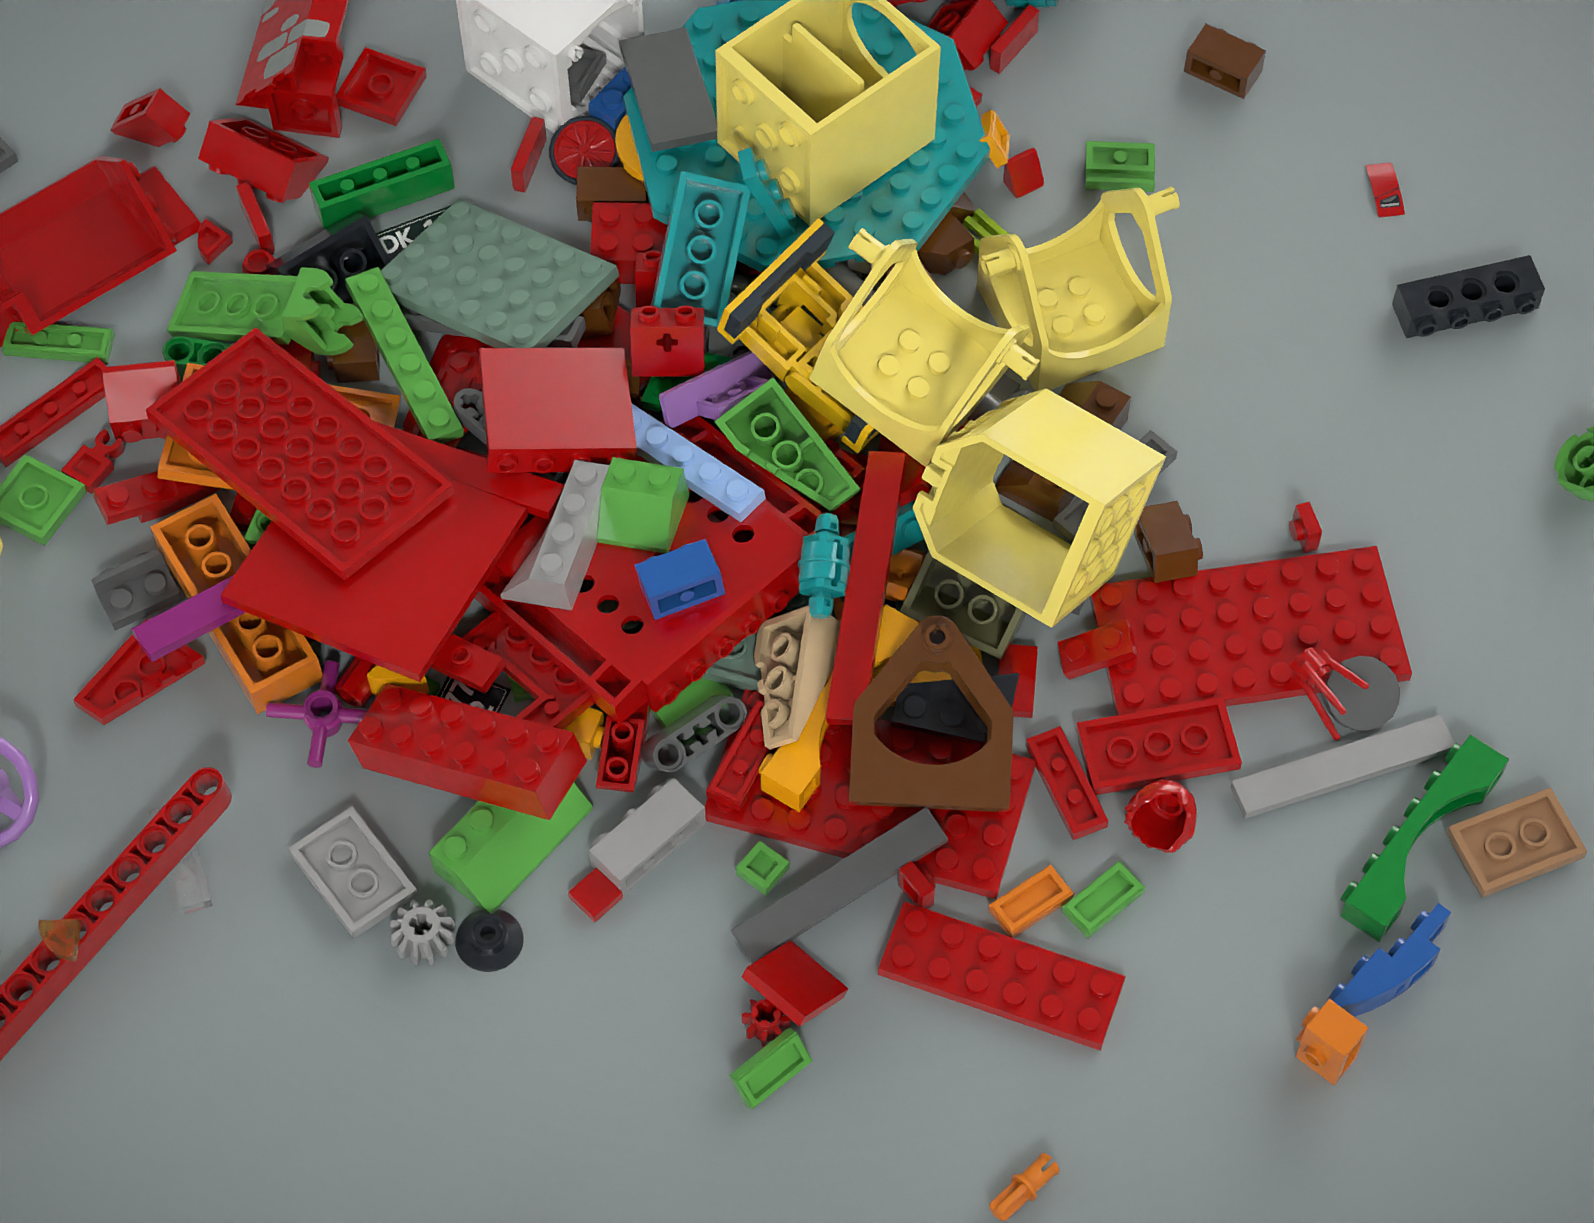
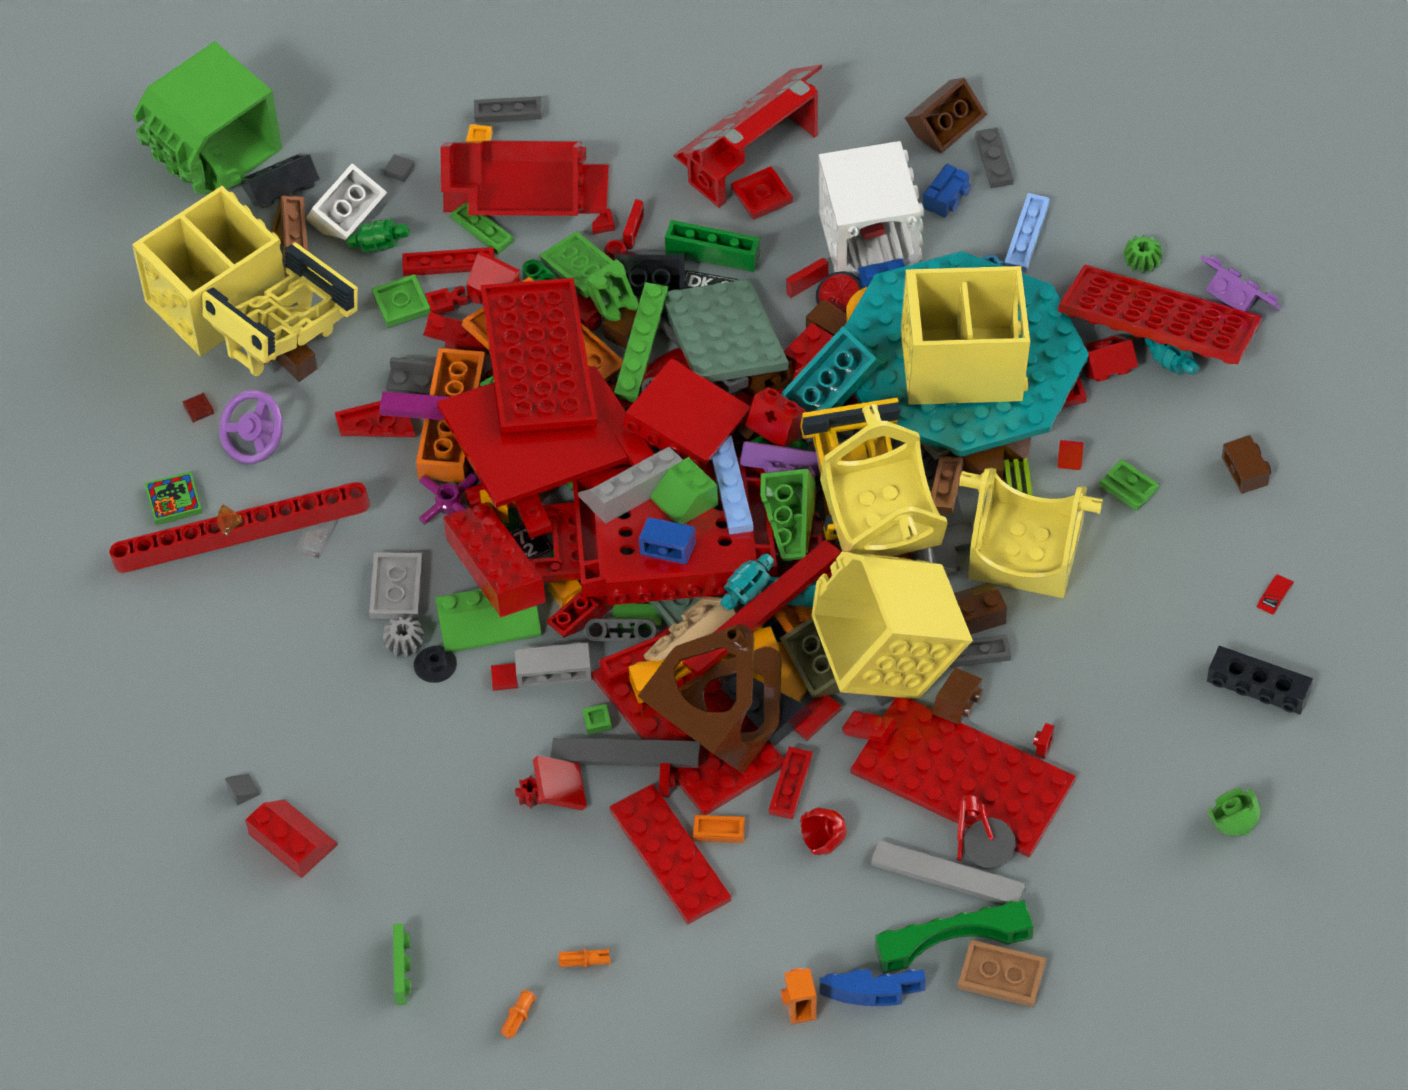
camera: 40 degrees right, 5 degrees down
(152, 119) = (626, 138): red slope -> none
(260, 158) = (665, 192): red slope -> none
(584, 73) = (870, 249): dark grey tile -> none
(669, 89) = (887, 292): dark grey tile -> none
(767, 192) = (886, 367): teal plate -> none
(770, 1068) = (512, 815): bright green tile -> none
(997, 138) = (1067, 424): light orange tile -> none
(1014, 39) = (1135, 378): red tile -> none
(1103, 899) = (757, 853): bright green tile -> none
(1158, 745) = (857, 796): red plate -> none

